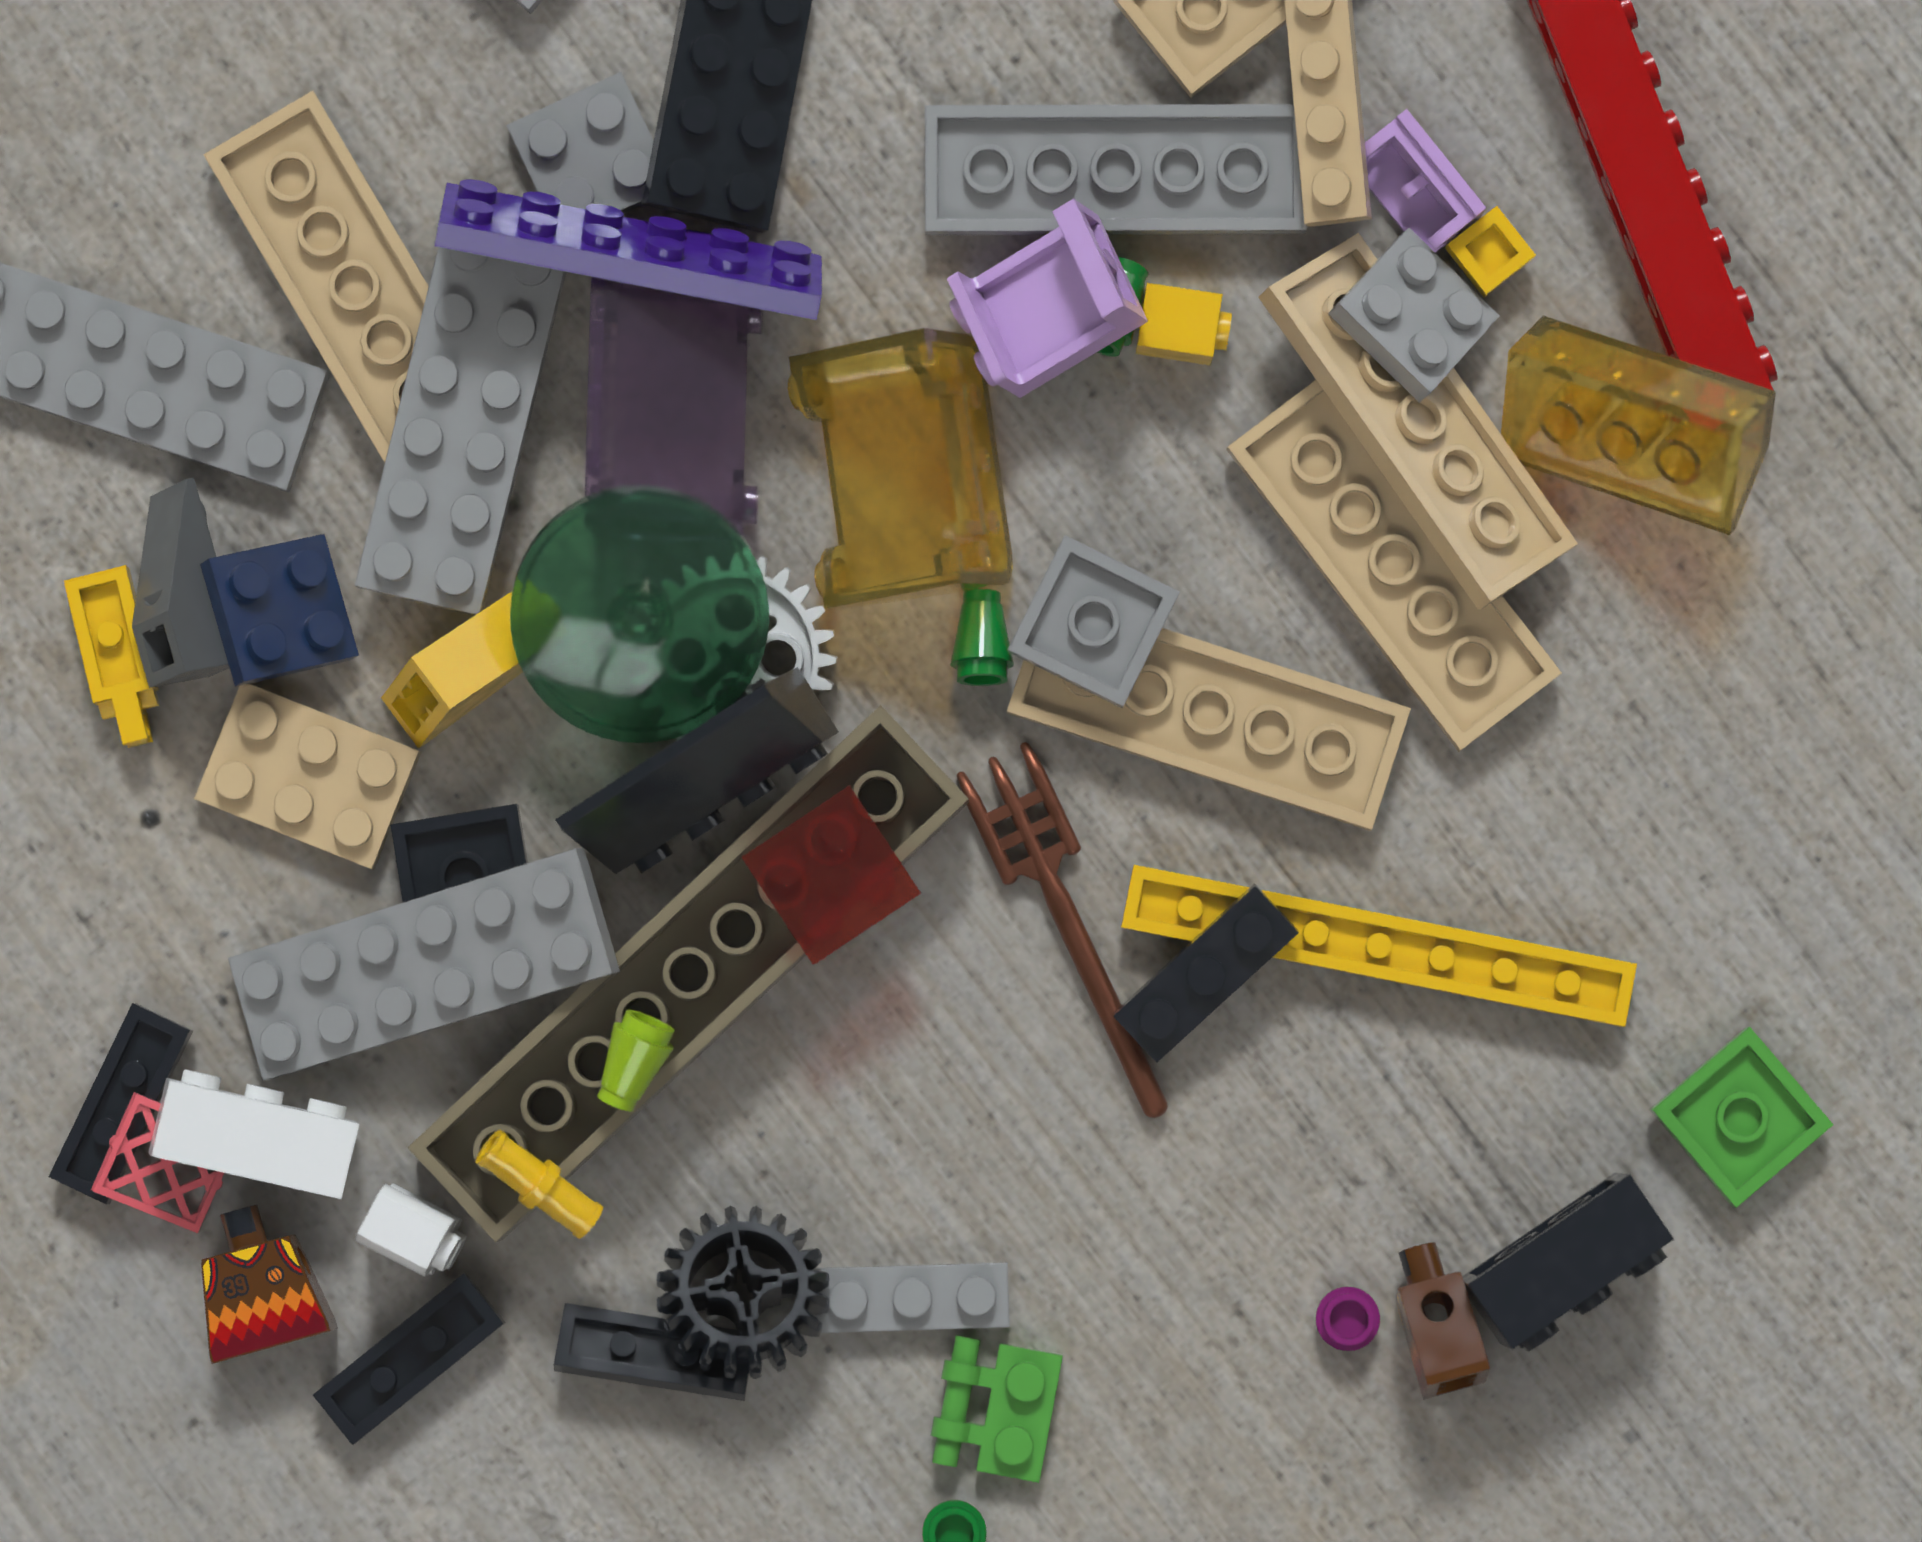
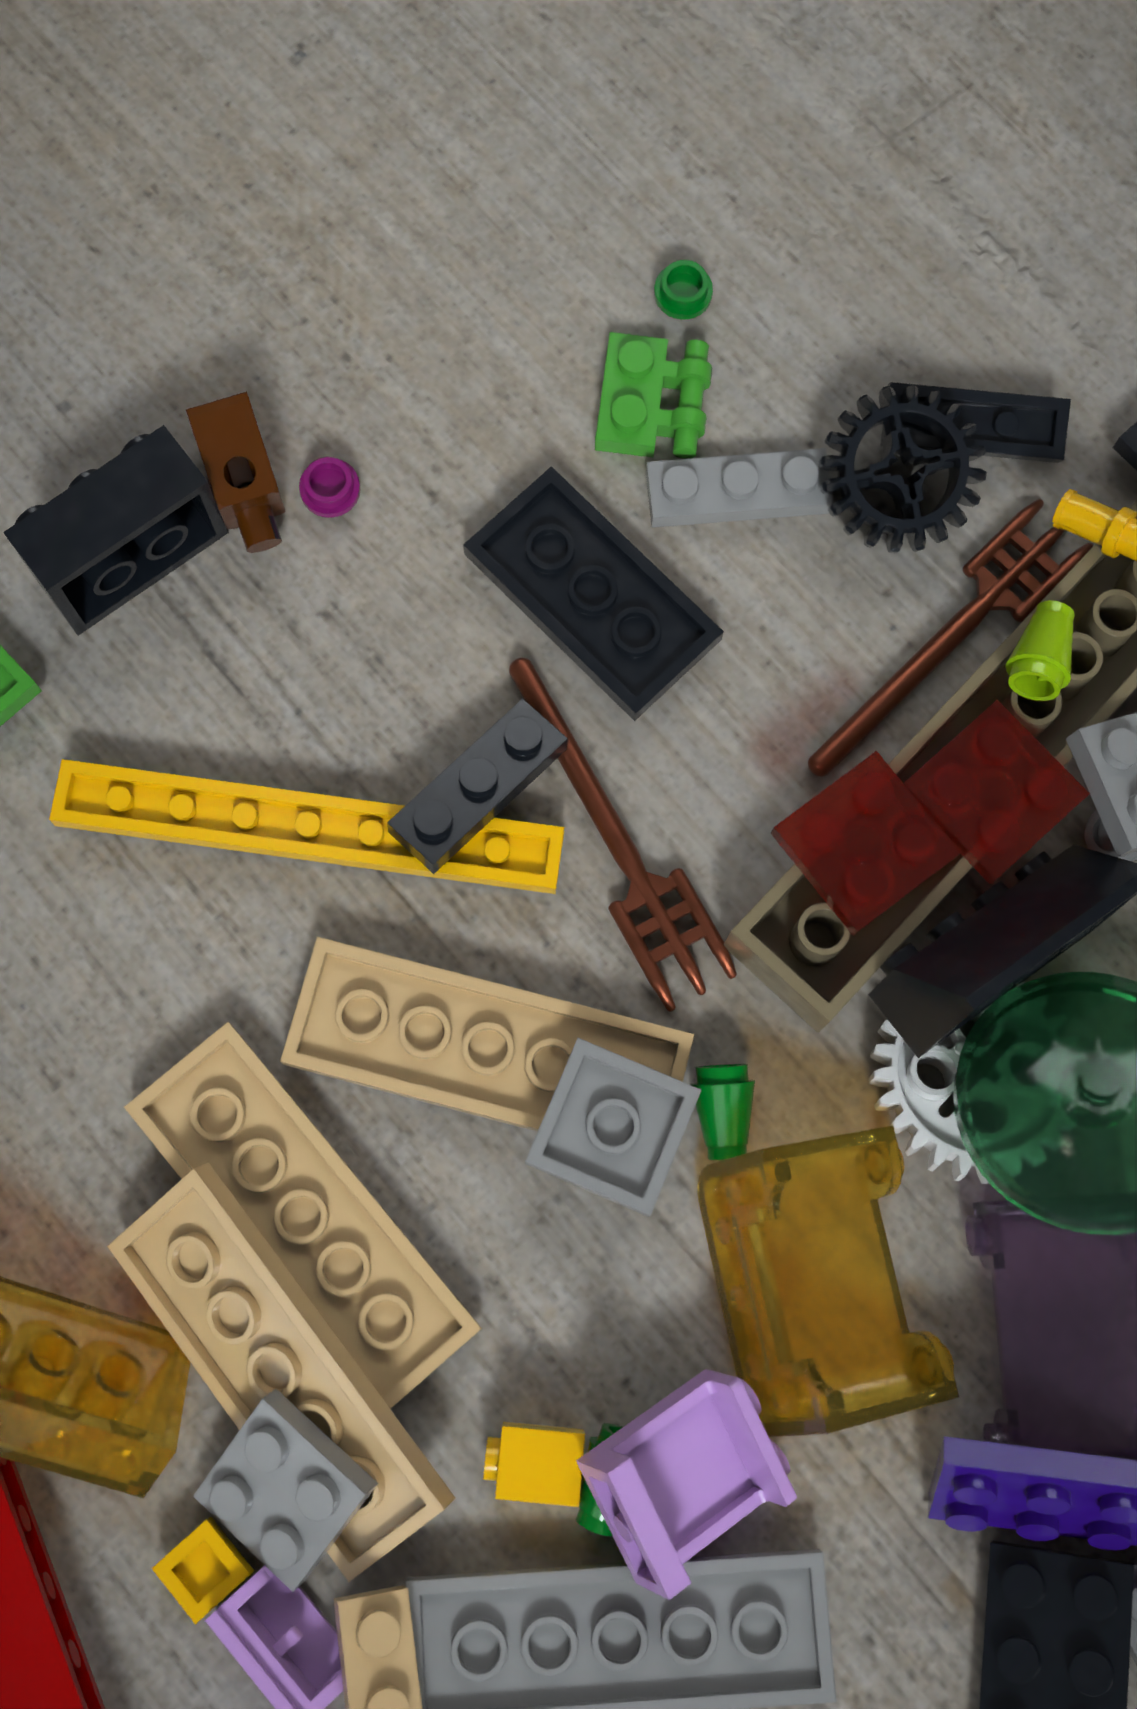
camera: 170 degrees right, 10 degrees down
(656, 1160) = (991, 595): none -> copper piece
(698, 920) = (995, 791): none -> clear red plate
(1076, 1182) = (593, 593): none -> black plate

